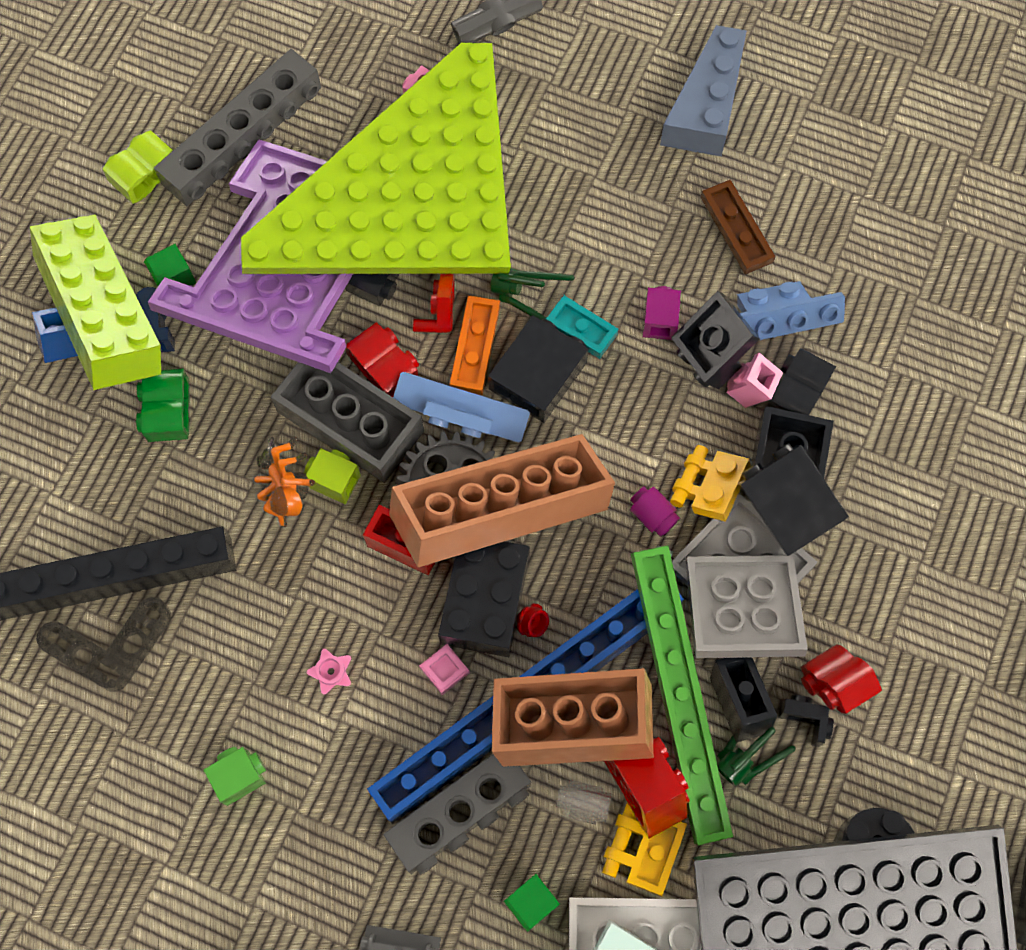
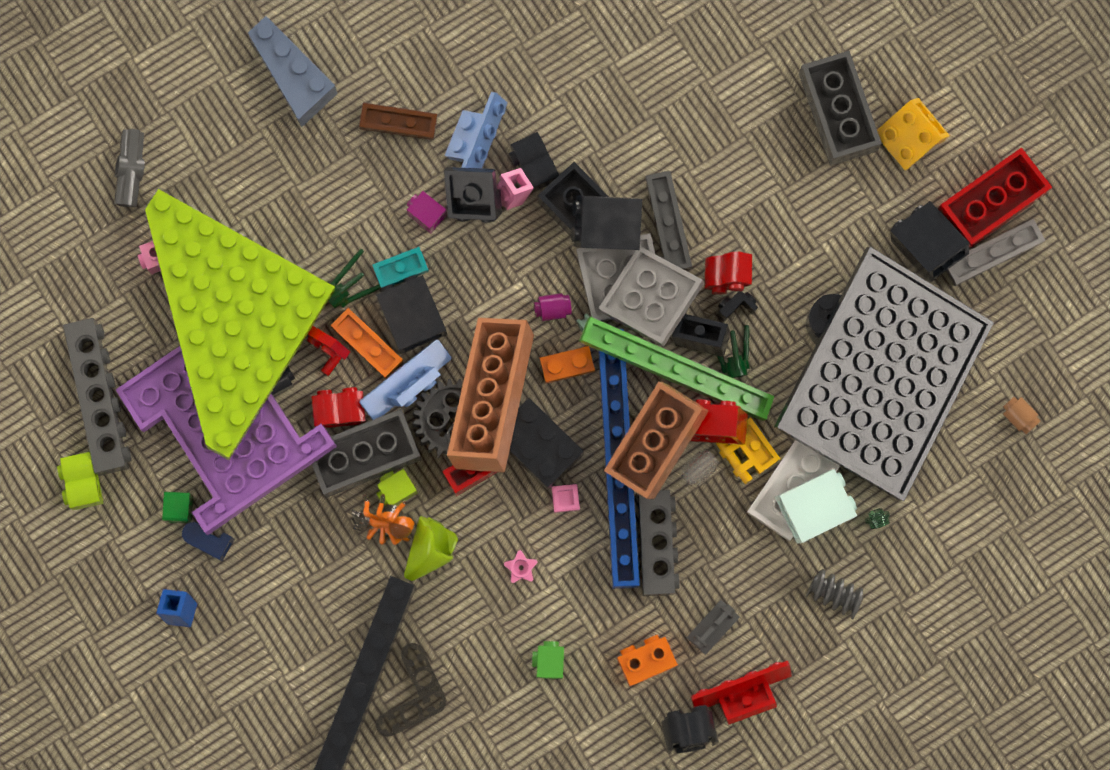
camera: 60 degrees left, 10 degrees up
(95, 302) = (177, 566): brick -> none
(164, 406) = (274, 566): green brick -> none
(289, 553) = (430, 548): none -> lime hat
(305, 893) = (647, 660): none -> orange brick
(531, 903) = (736, 535): green piece -> none
(532, 621) = (572, 426): red plate -> none
(600, 570) = (567, 364): none -> orange plate
(719, 486) = (565, 257): yellow plate -> none
(848, 573) = (668, 219): none -> dark grey plate

